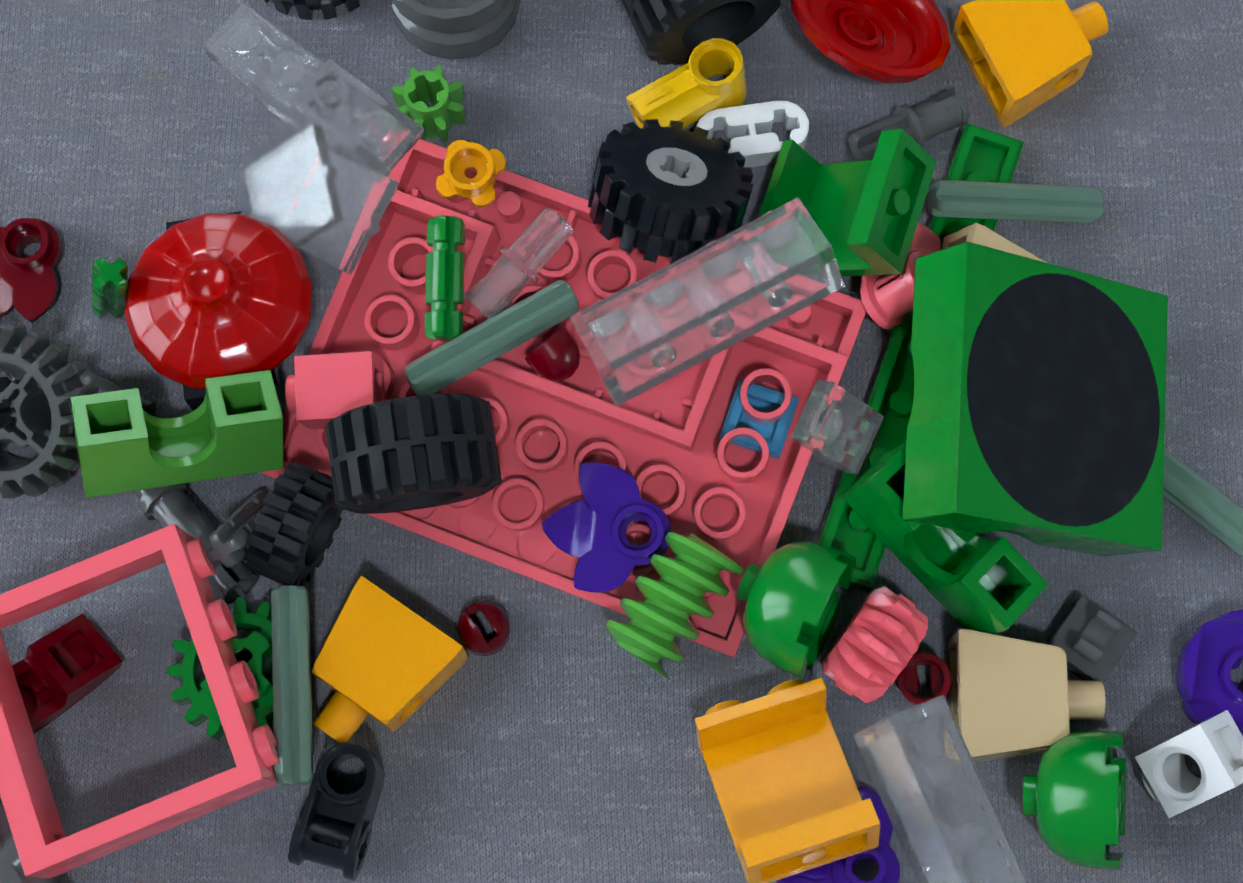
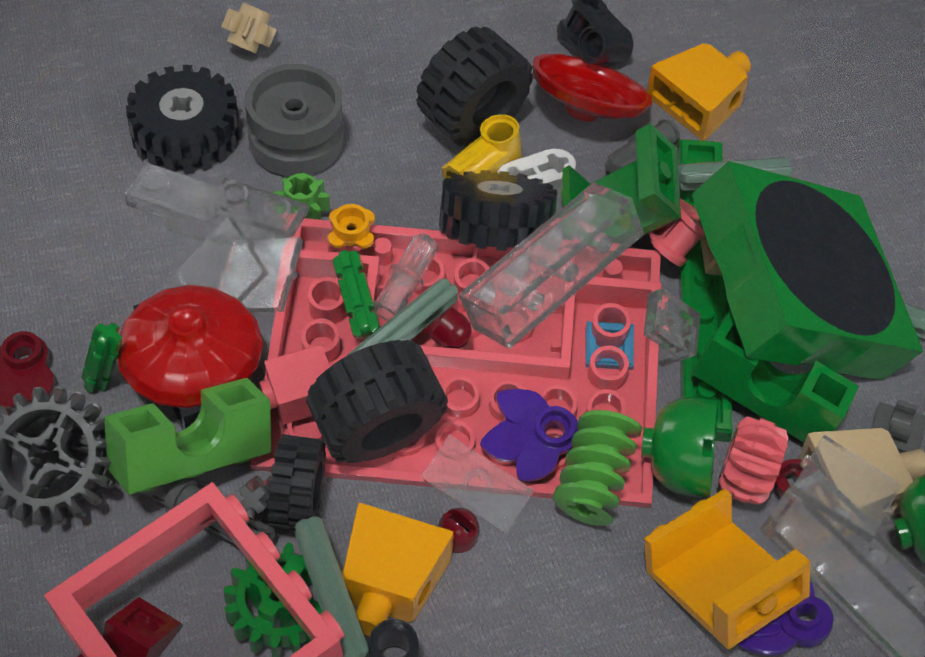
camera: 20 degrees left, 20 degrees down
(520, 580) = (477, 484): none -> clear plate
(970, 729) = (846, 488): none -> clear piece

